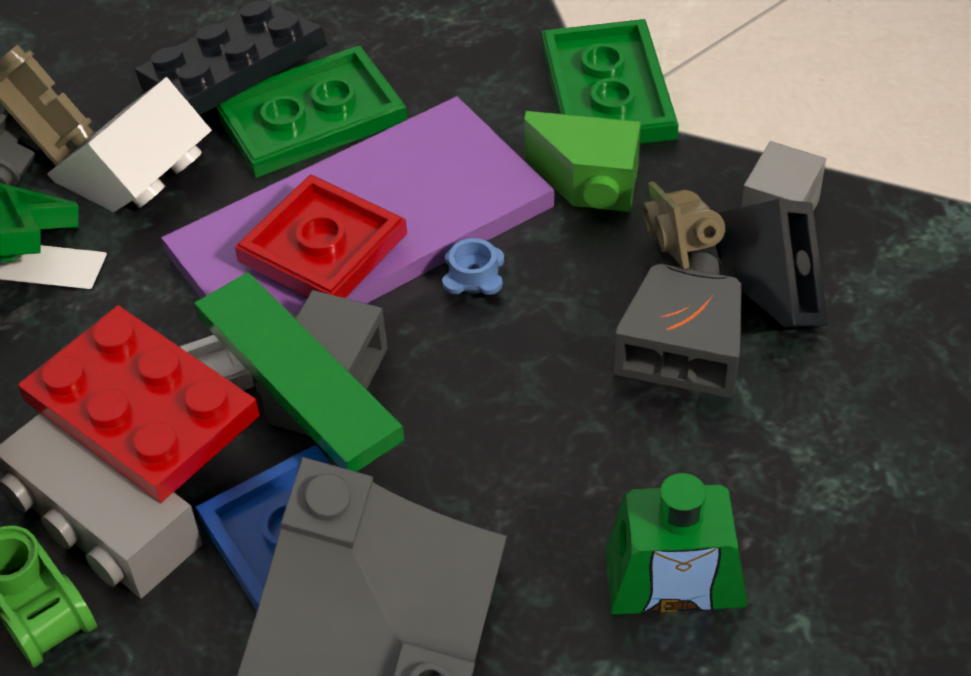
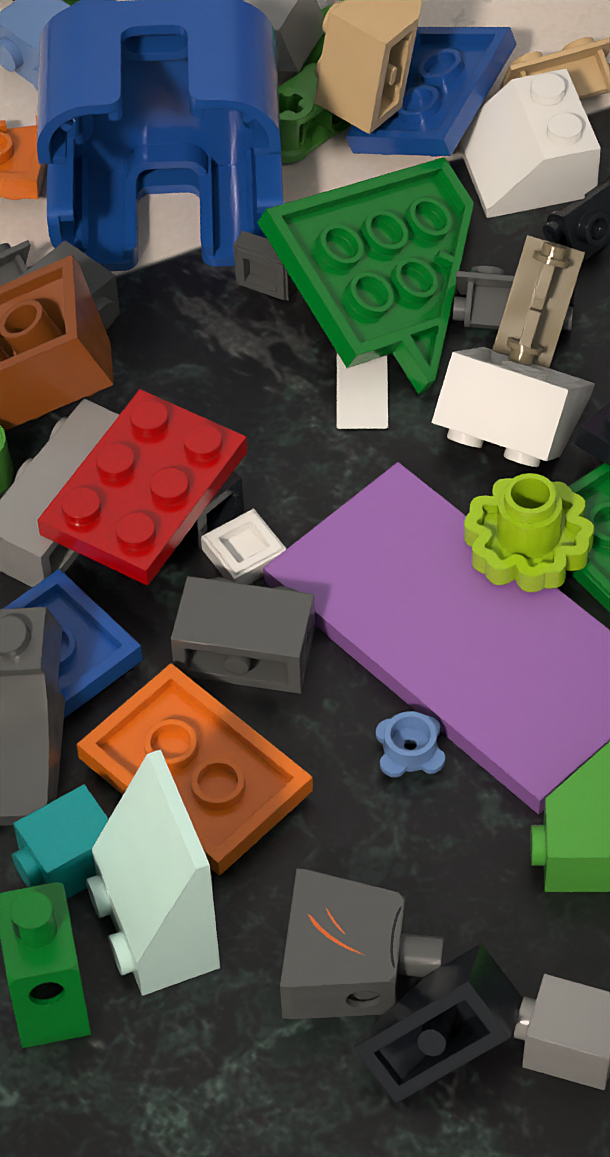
camera: 80 degrees right, 5 degrees up
(282, 147) = (528, 532): none -> lime plant
(300, 373) = (193, 599): green tile -> none
(321, 239) = (397, 592): red plate -> none
(473, 422) = (223, 768): none -> orange plate
(542, 529) = (59, 841): none -> teal brick
(620, 412) = (155, 884): none -> light aqua slope
(681, 222) = (476, 910): dark tan hinge -> none

